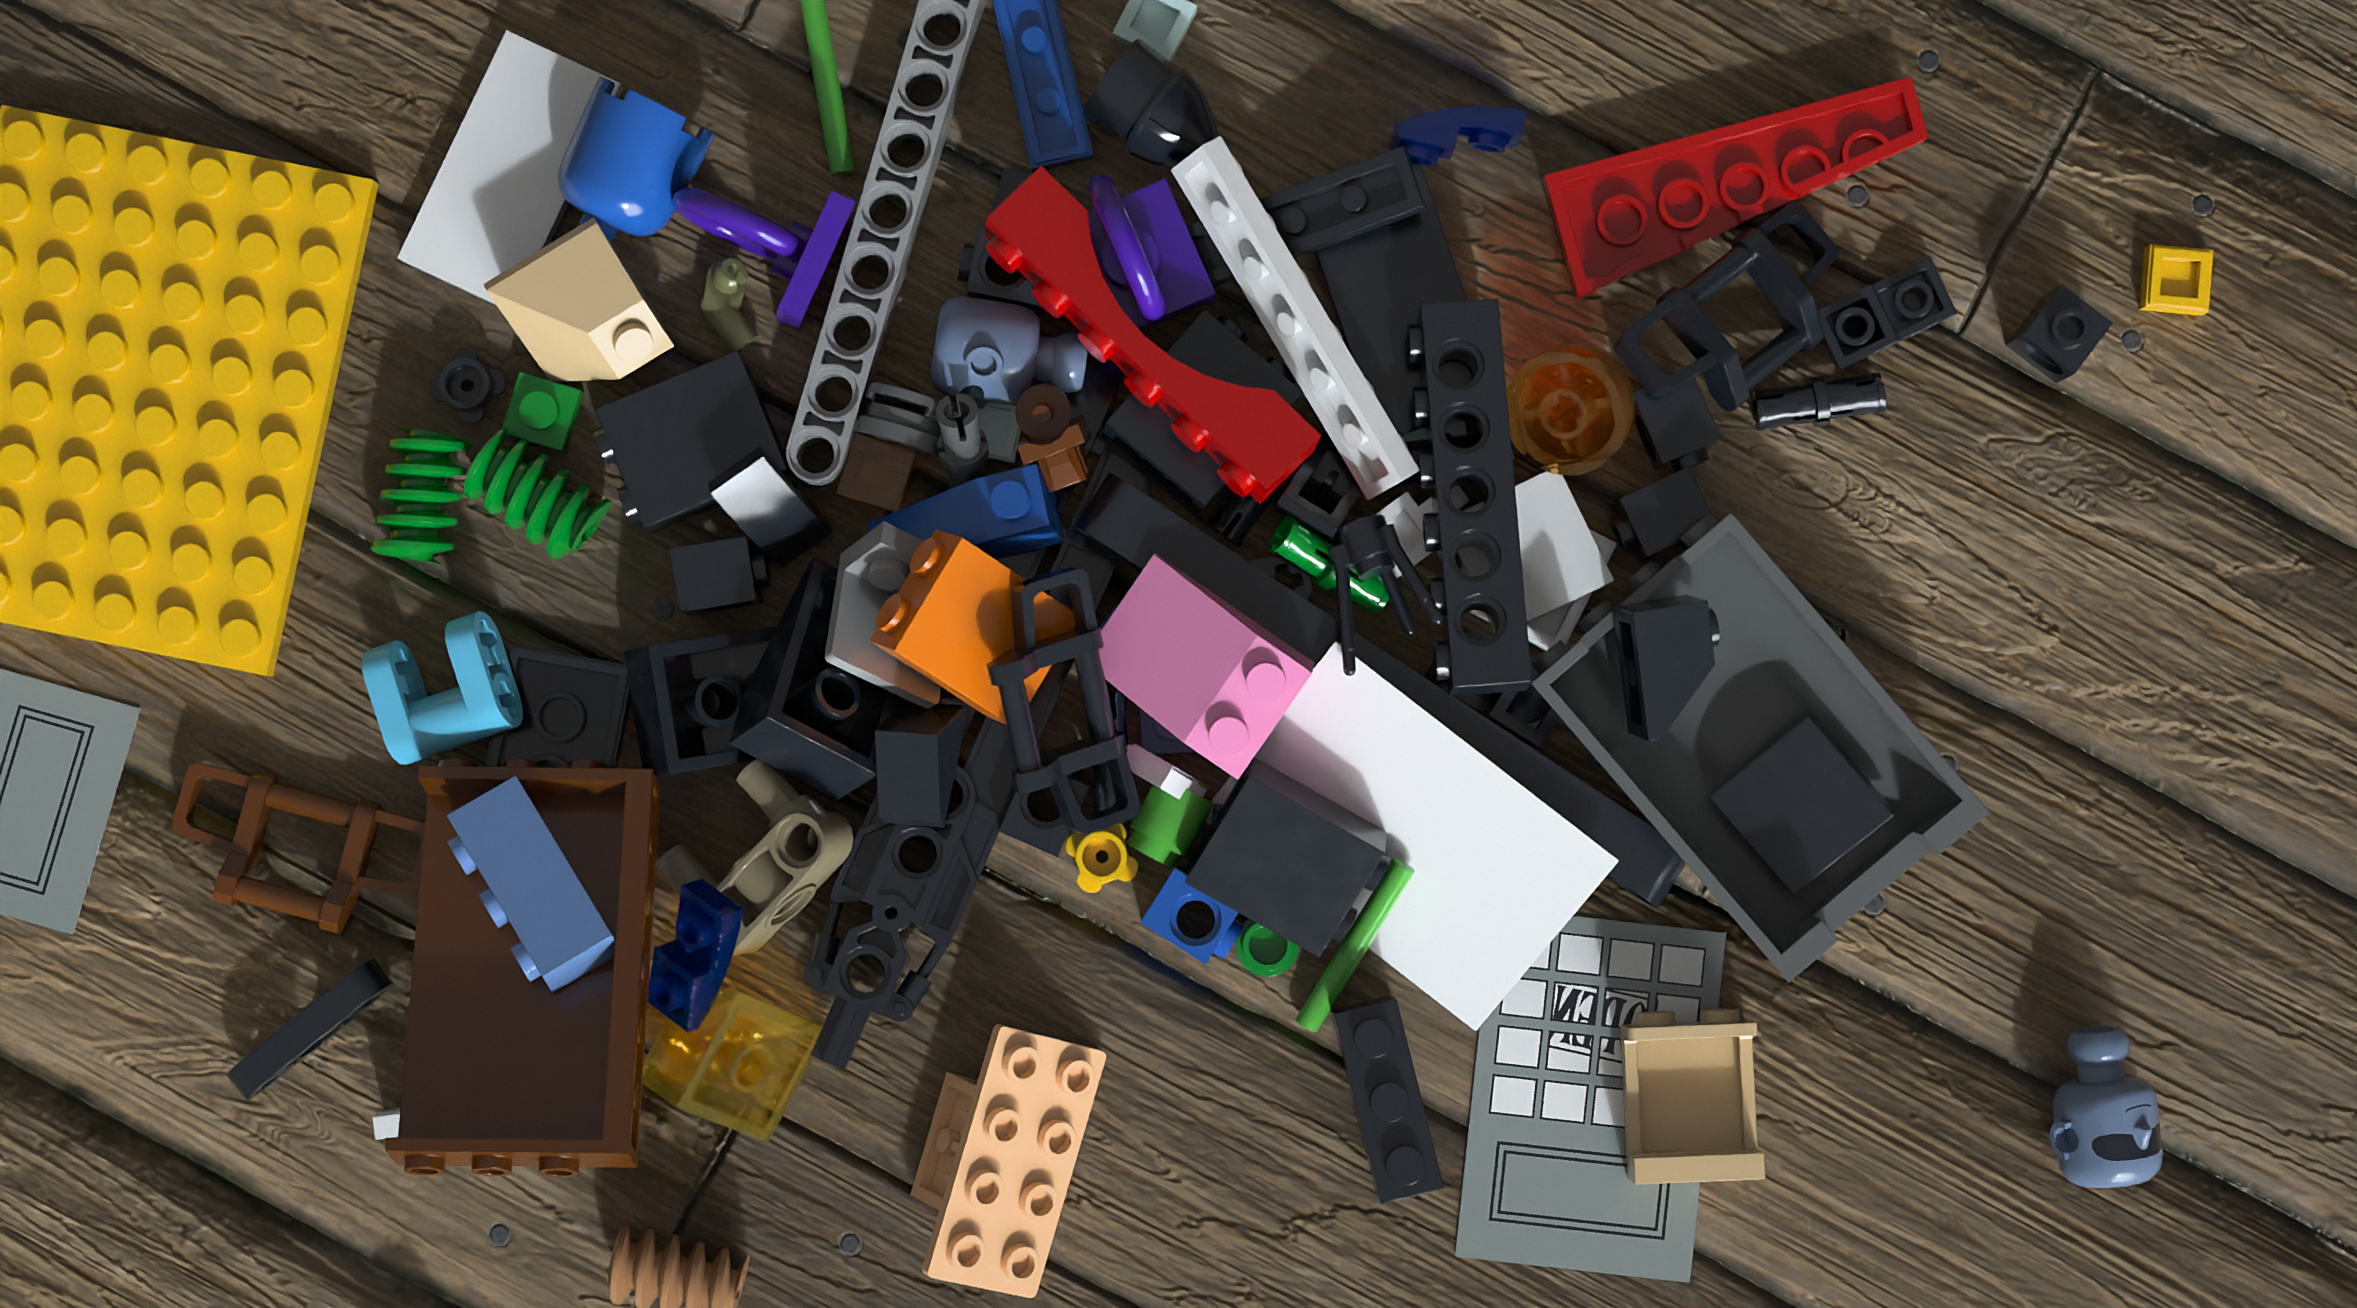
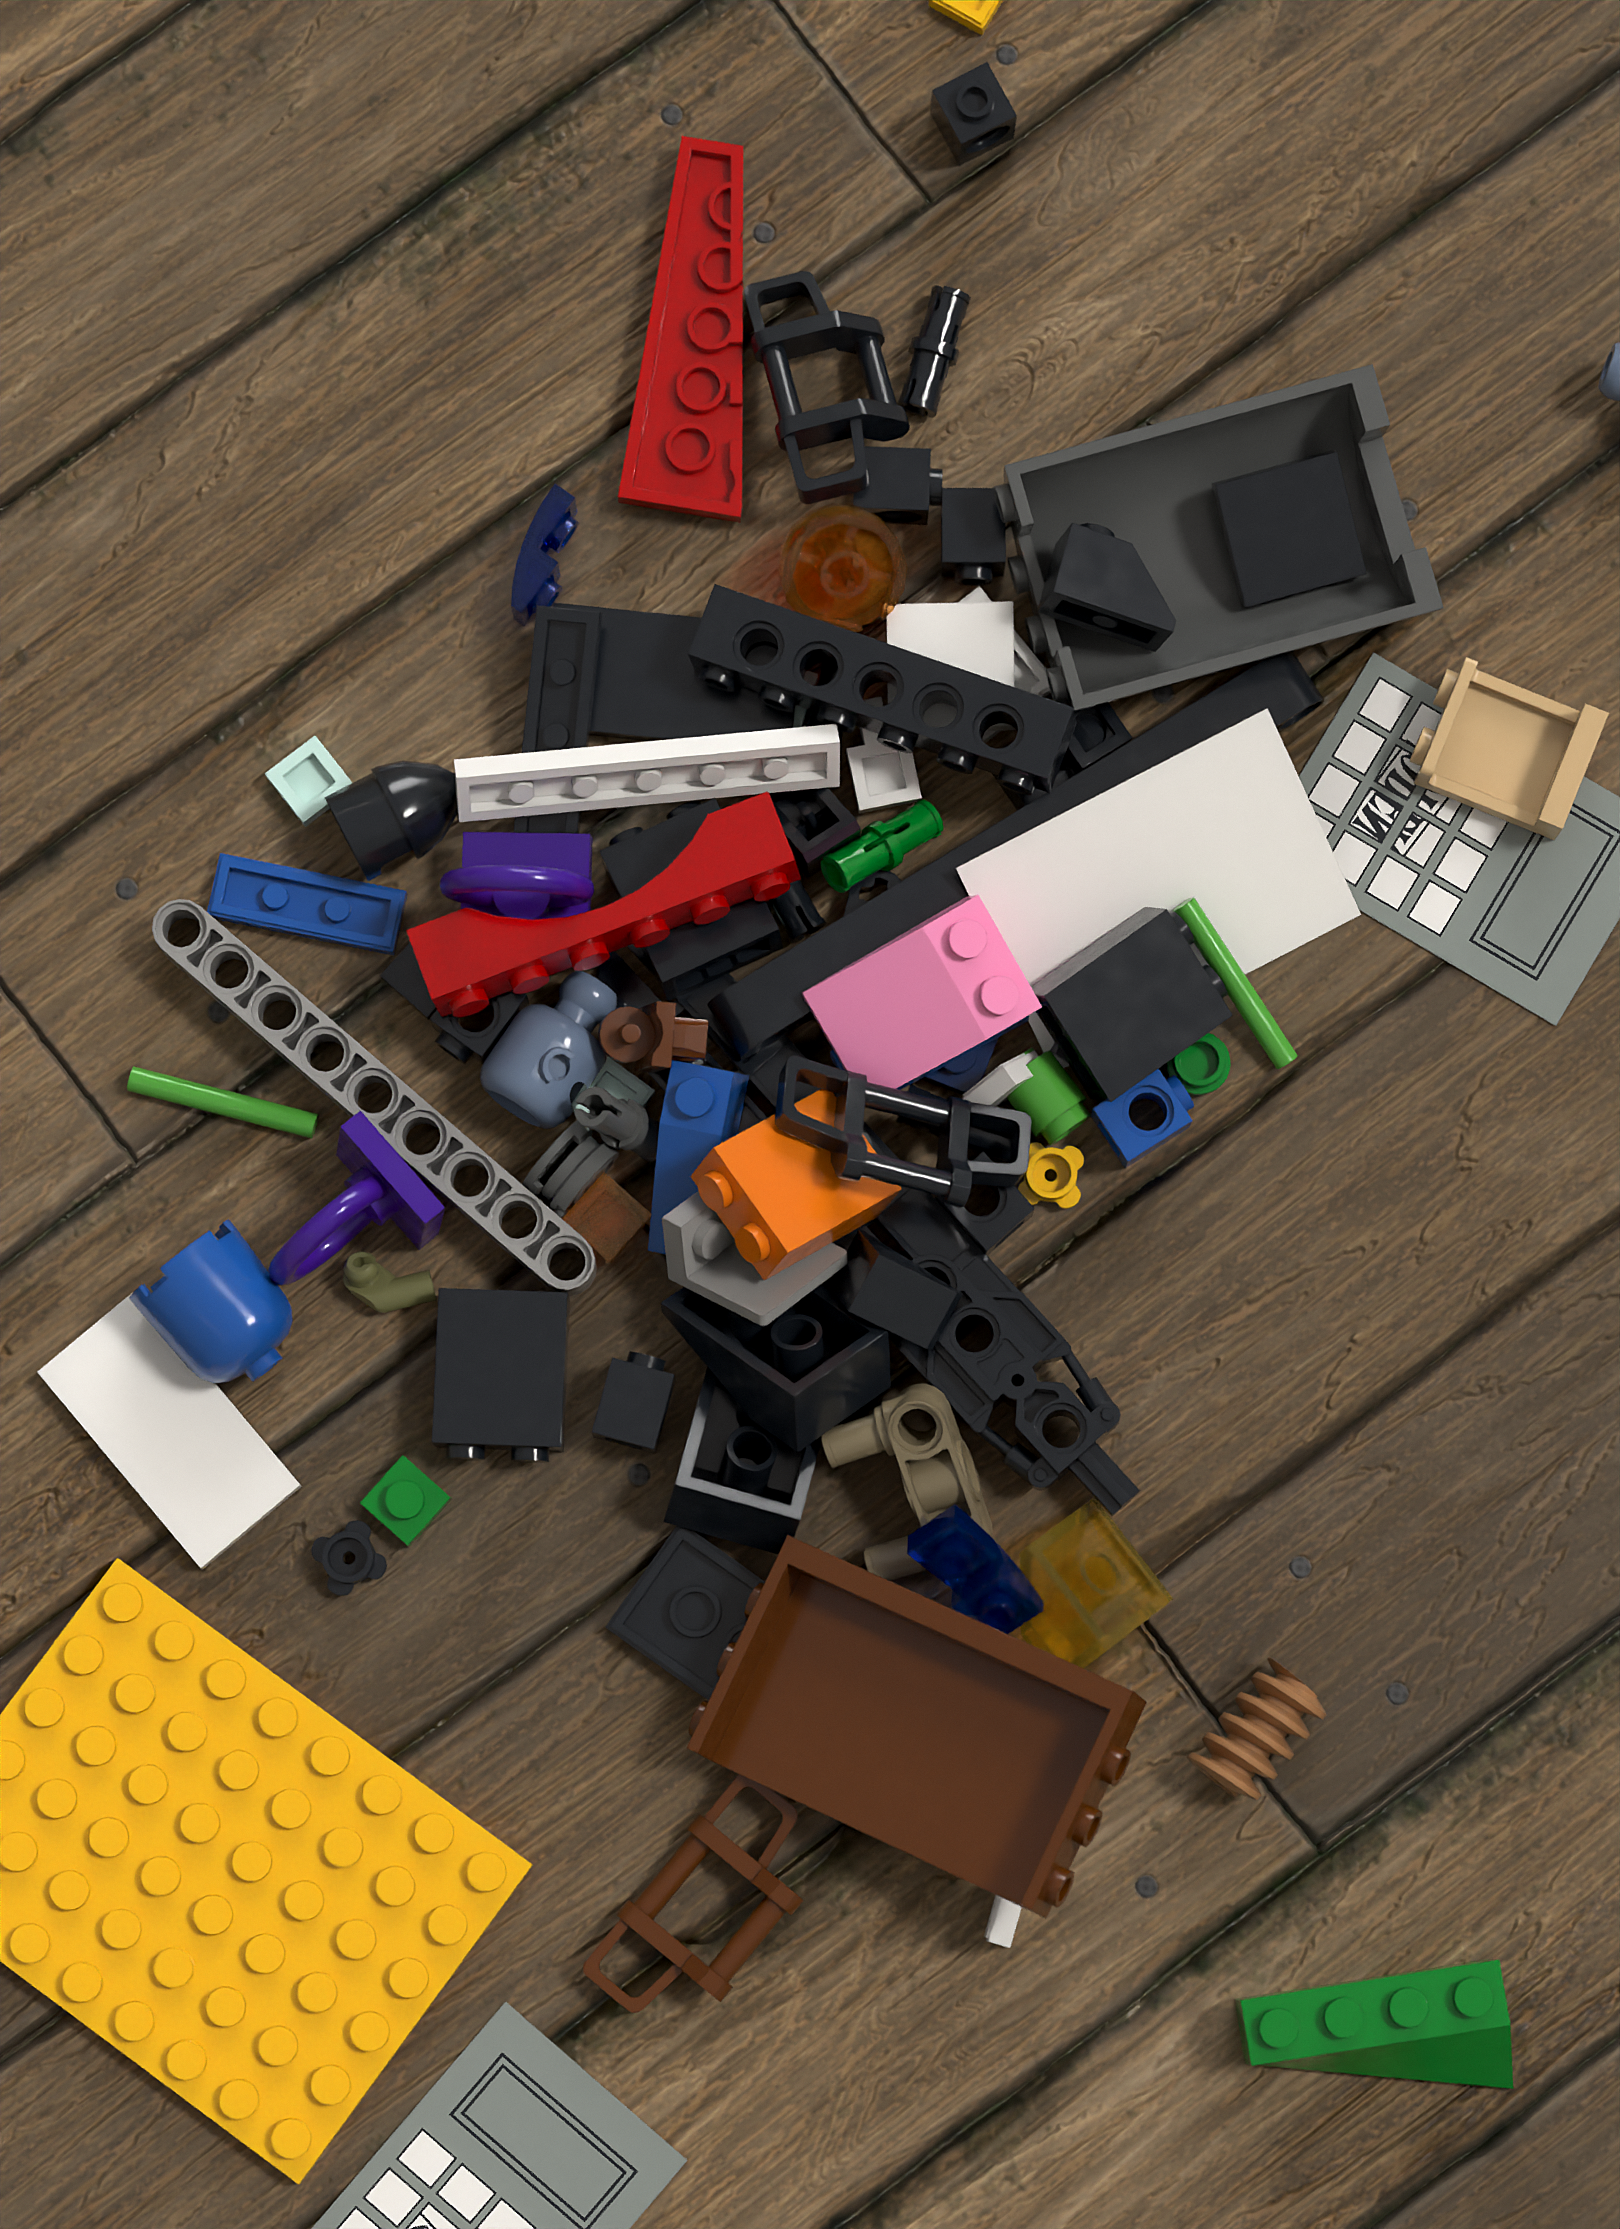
camera: 65 degrees left, 5 degrees down
(310, 1029) = (878, 1970): black beam -> none
(420, 495) = (433, 1644): green piece -> none
(426, 725) = (651, 1710): medium azure connector -> none
(530, 886) = (845, 1689): medium blue brick -> none
(533, 497) = (483, 1537): green piece -> none
(580, 309) = (334, 1414): tan slope -> none
(769, 507) = (595, 1324): black slope -> none
(1005, 1159) = (1284, 1386): light nougat bracket -> none
(1373, 551) = (886, 802): black plant -> none
(1387, 1099) = (1386, 1017): black brick -> none
(1885, 313) = (882, 255): black slope -> none

